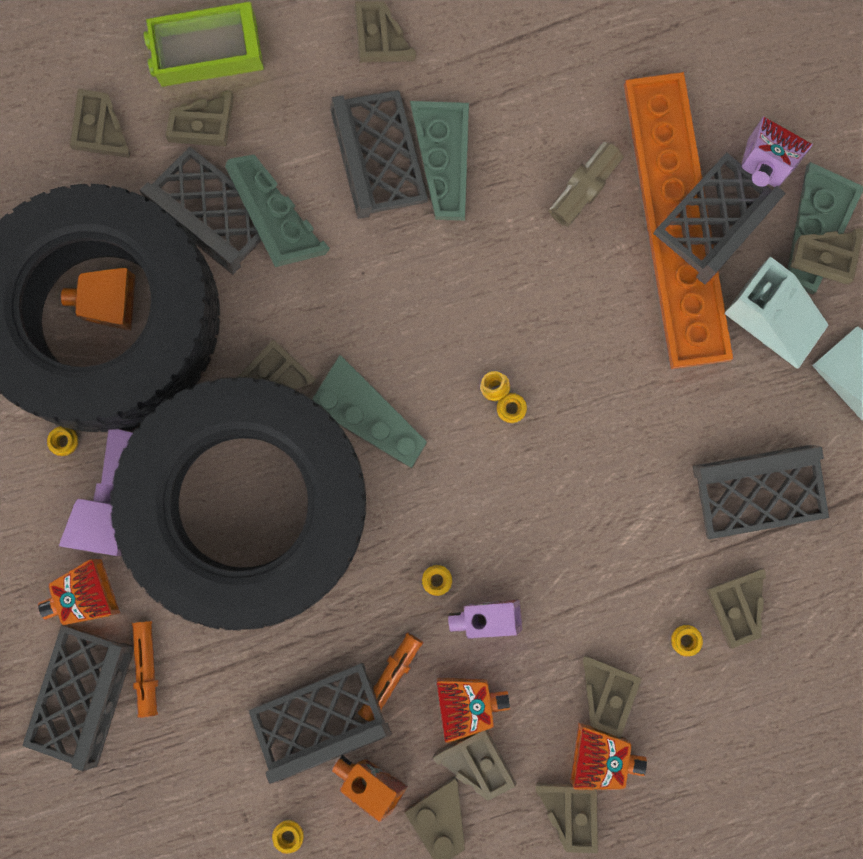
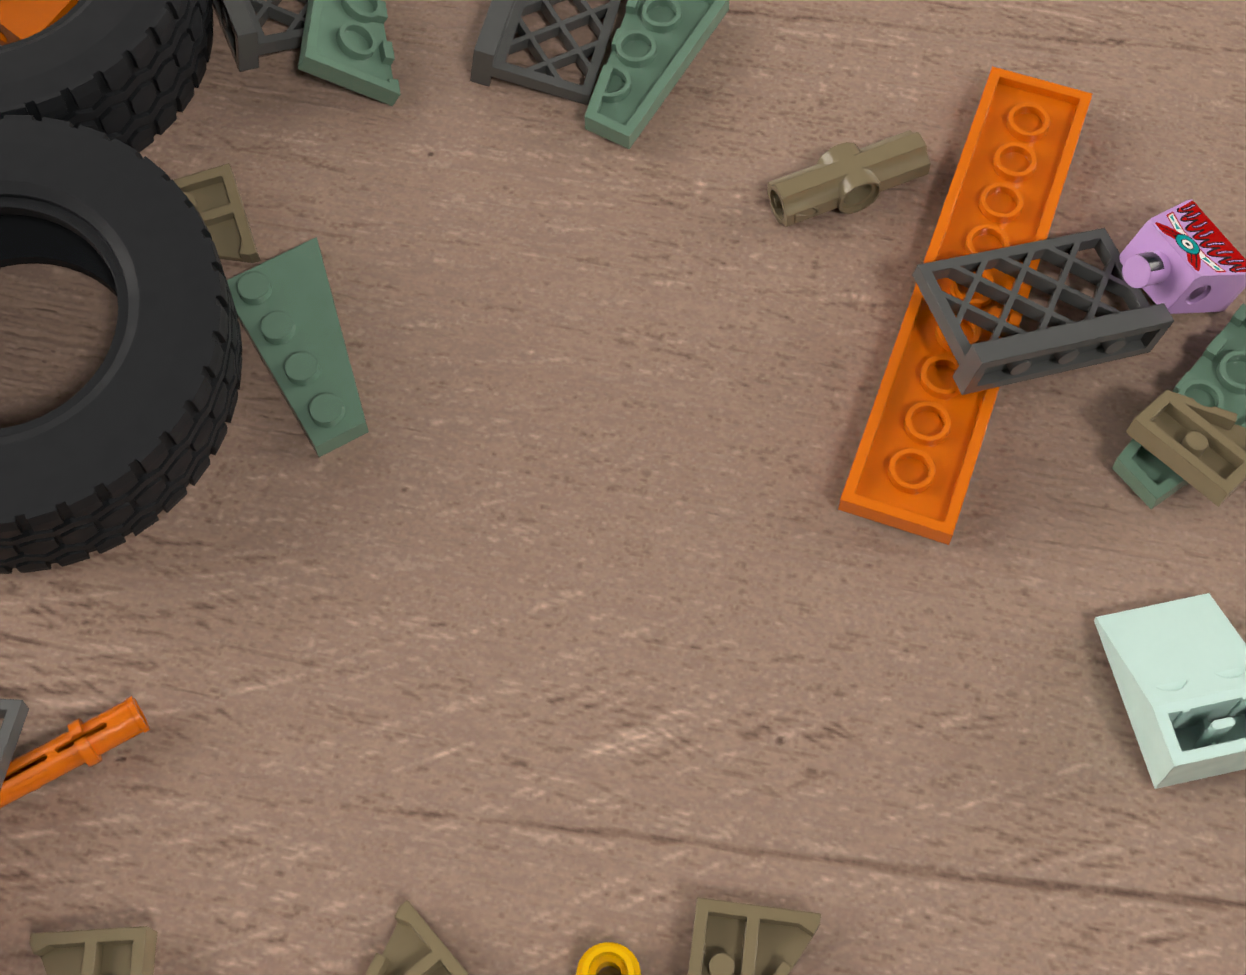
camera: 25 degrees right, 20 degrees down
(437, 590) = (236, 627): yellow plate -> none
(468, 706) = (146, 873): torso -> none
(493, 379) = (526, 391): yellow plate -> none
(502, 619) = (283, 739): lavender torso -> none
(520, 404) = (529, 426): yellow plate -> none
(760, 464) = (906, 729): dark grey fence -> none
(778, 312) = (1070, 495): light aqua slope -> none

